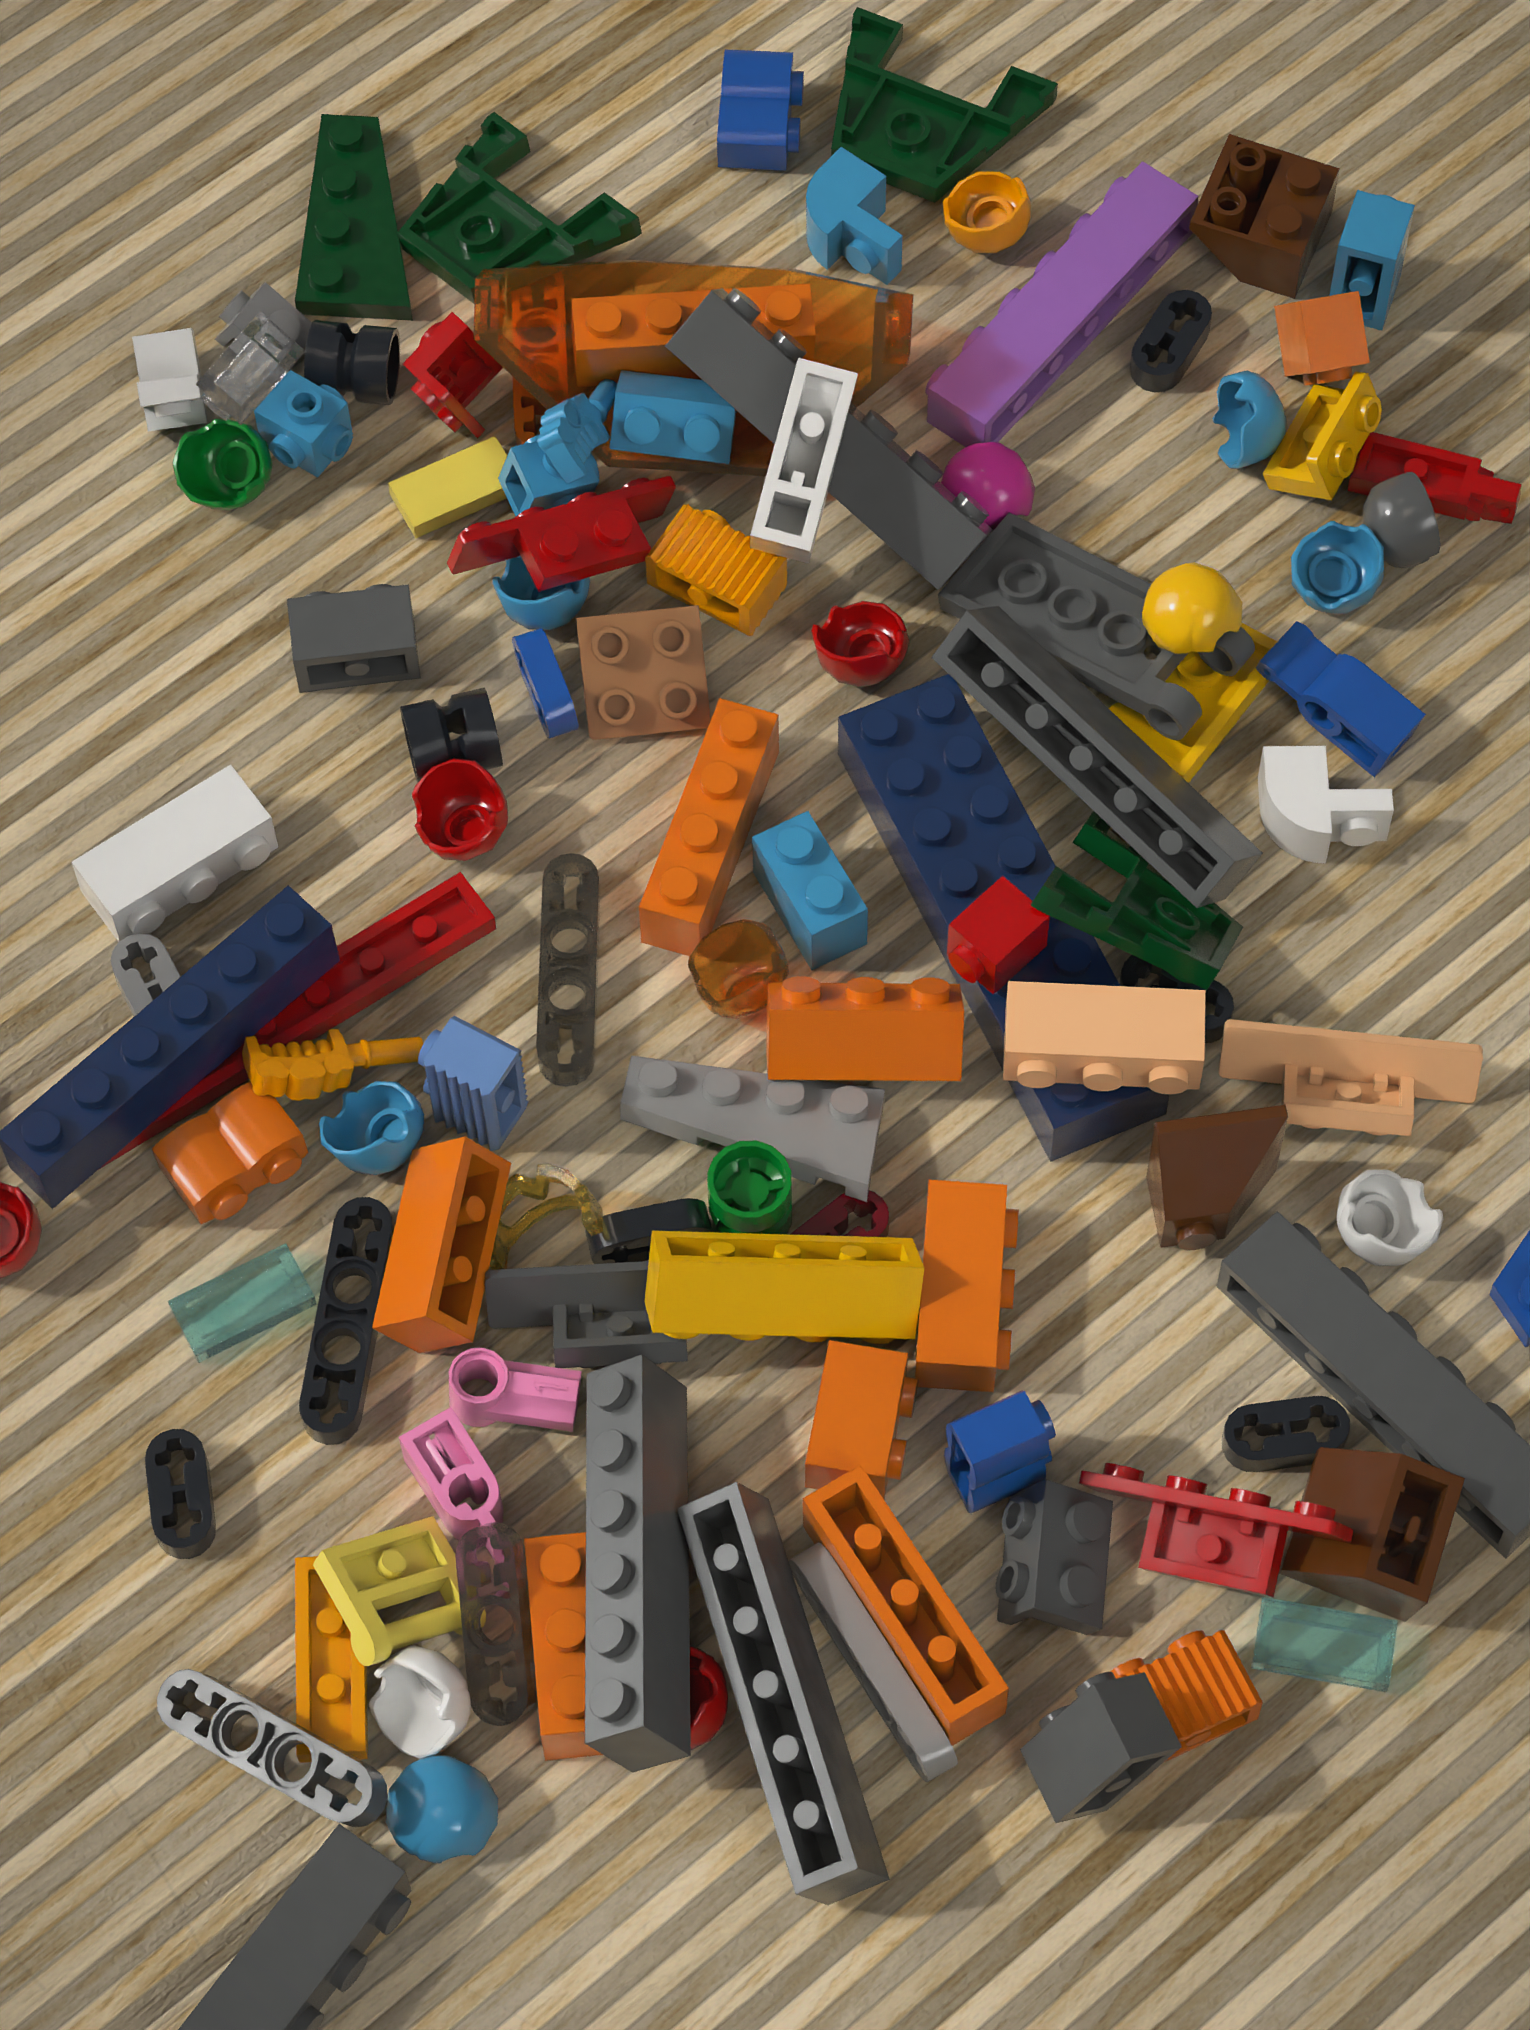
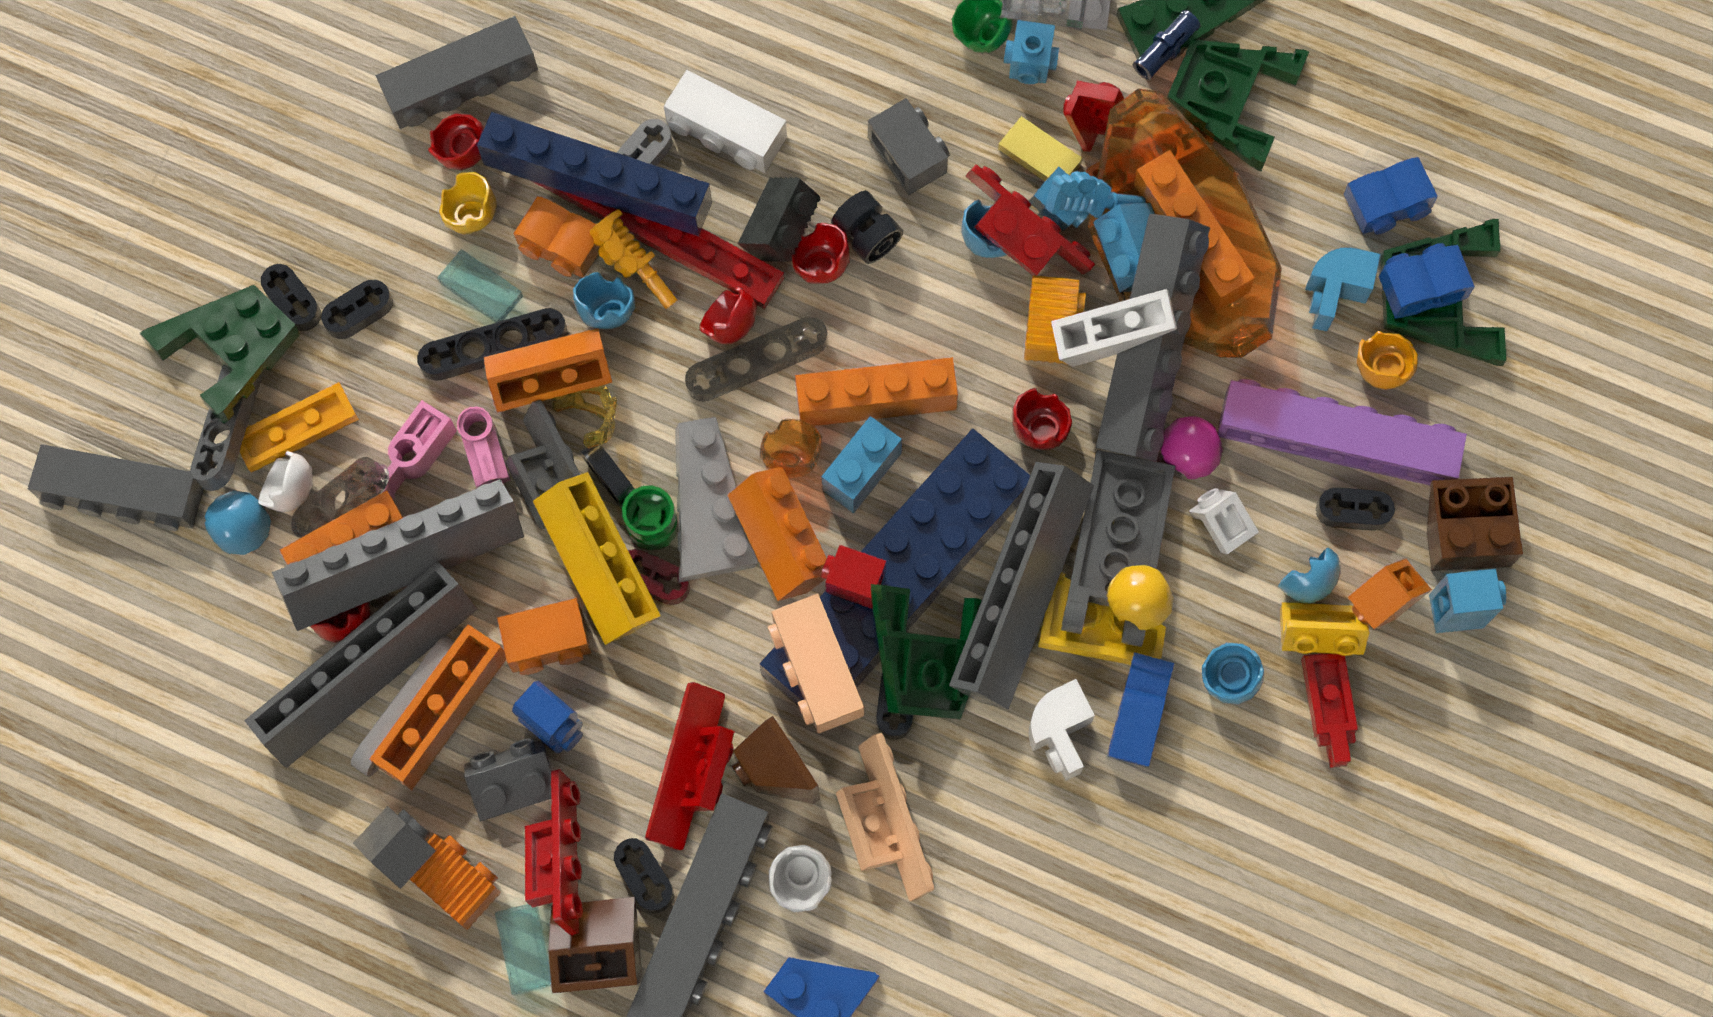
camera: 65 degrees right, 10 degrees up
(100, 1571) = (297, 292): none -> black beam
(103, 1255) = (468, 203): none -> yellow hair
(127, 1675) = (241, 331): none -> dark green wing
(354, 362) = (1087, 55): black wheel -> none
(378, 838) = (779, 219): none -> pearl dark grey brick
(390, 1571) = (343, 429): light yellow plate -> none
(392, 261) = (1166, 45): none -> dark blue pin
(474, 1082) = (648, 339): medium blue brick -> none
(488, 969) = (729, 317): none -> red hair
(545, 683) = (930, 261): blue beam -> none
(643, 672) = (967, 307): medium nougat bracket -> none
(907, 111) = (1426, 280): none -> blue brick
(965, 1286) = (651, 658): orange brick -> none
(1111, 487) = (1224, 519): none -> white bracket
(1159, 1289) = (692, 767): none -> red bracket
(1403, 520) = (1279, 695): dark grey hair -> none

